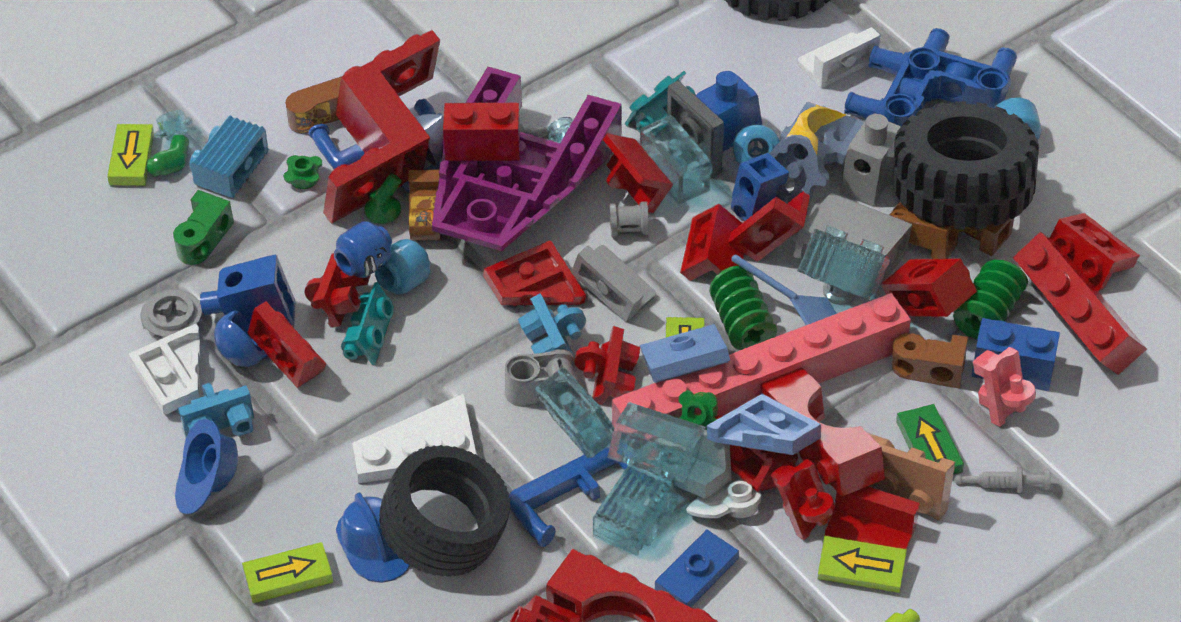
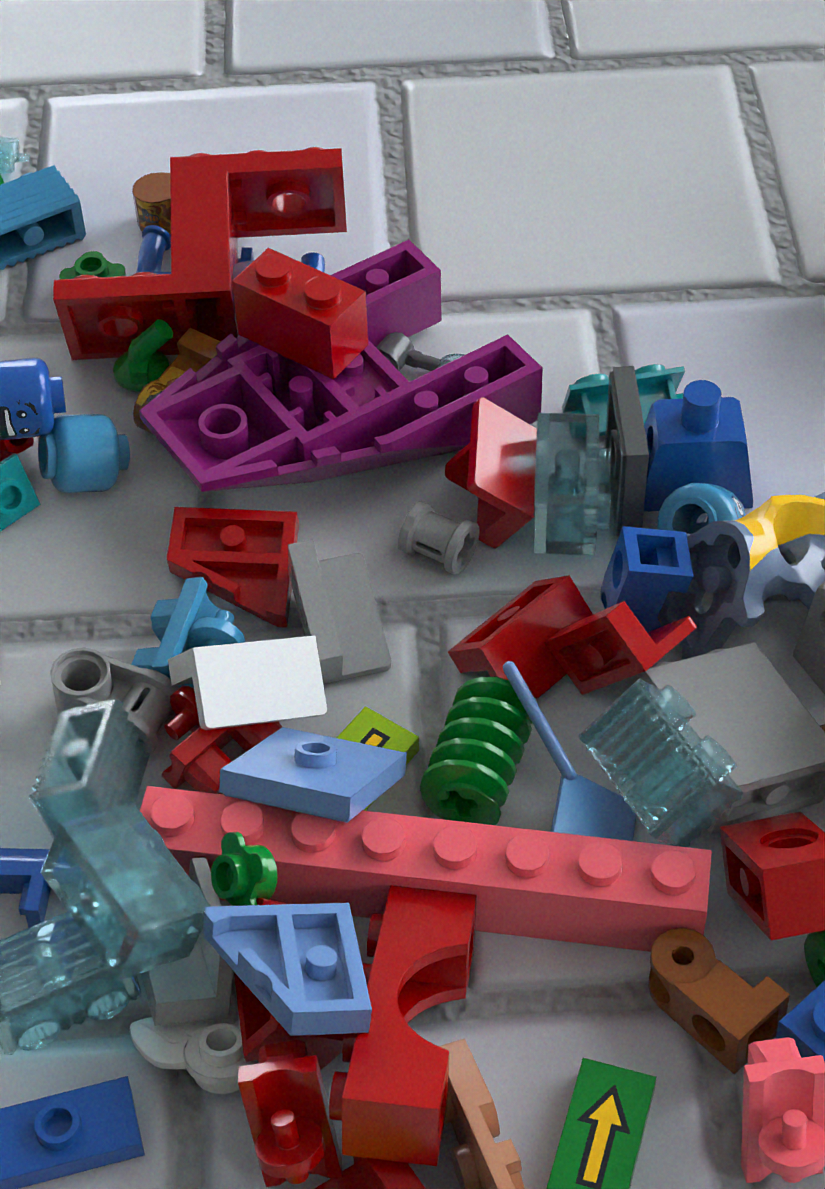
camera: 35 degrees right, 0 degrees up
(613, 328) = (253, 681): none -> white panel

